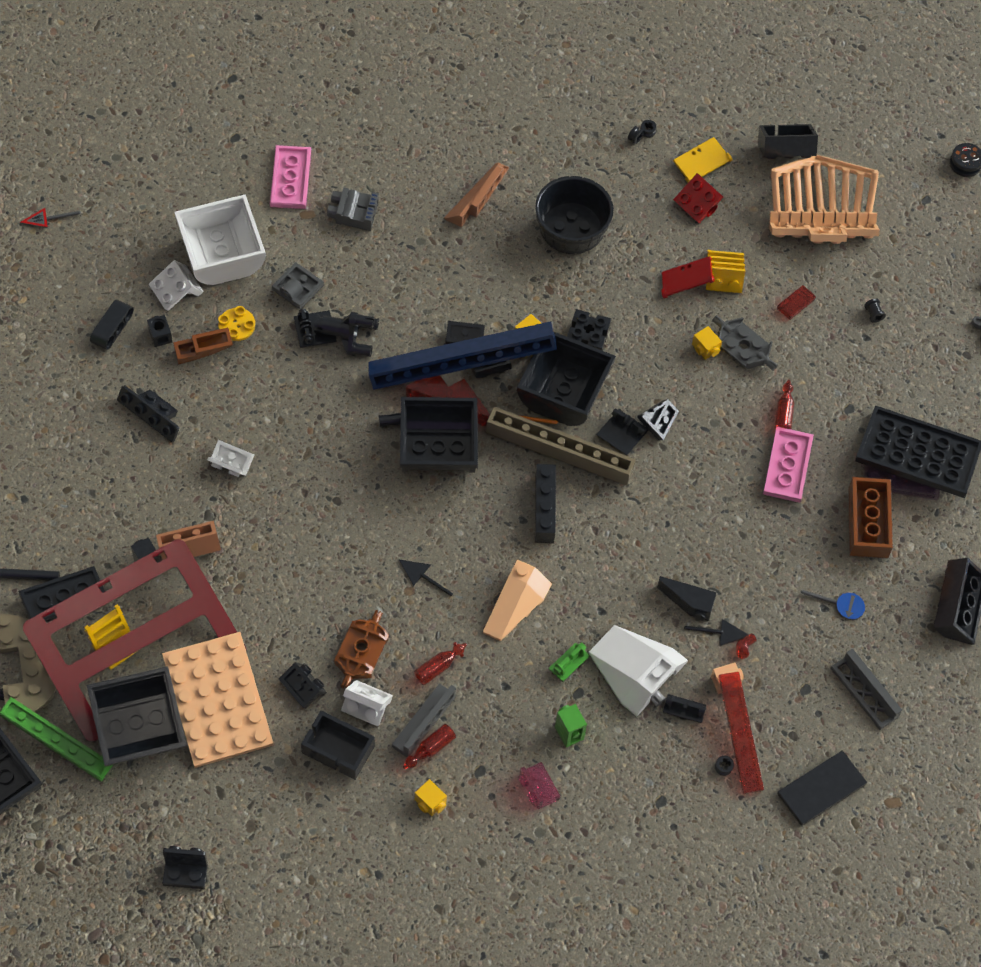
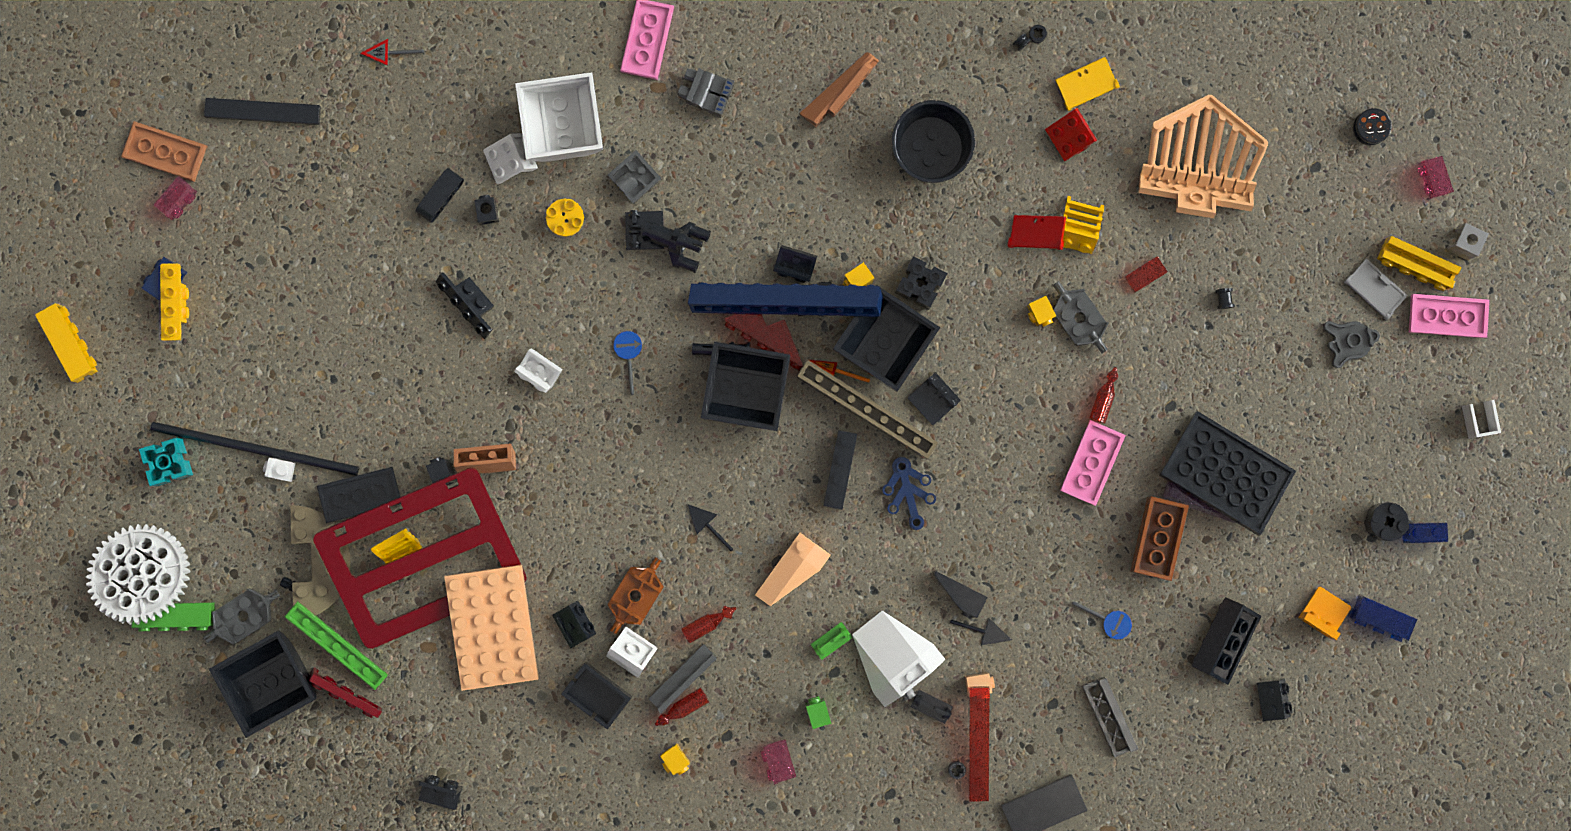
camera: 10 degrees right, 25 degrees up
(70, 784) = (328, 683): none -> dark red wing
(136, 716) = (410, 647): black container -> none
(202, 345) = (527, 237): dark orange slope -> none
(315, 429) = (628, 346): none -> blue piece
(616, 513) = (908, 489): none -> dark blue plant
(659, 418) = (973, 392): wing -> none
(743, 646) = (1002, 651): clear red arm -> none
(790, 141) = (1189, 82): black piece -> none

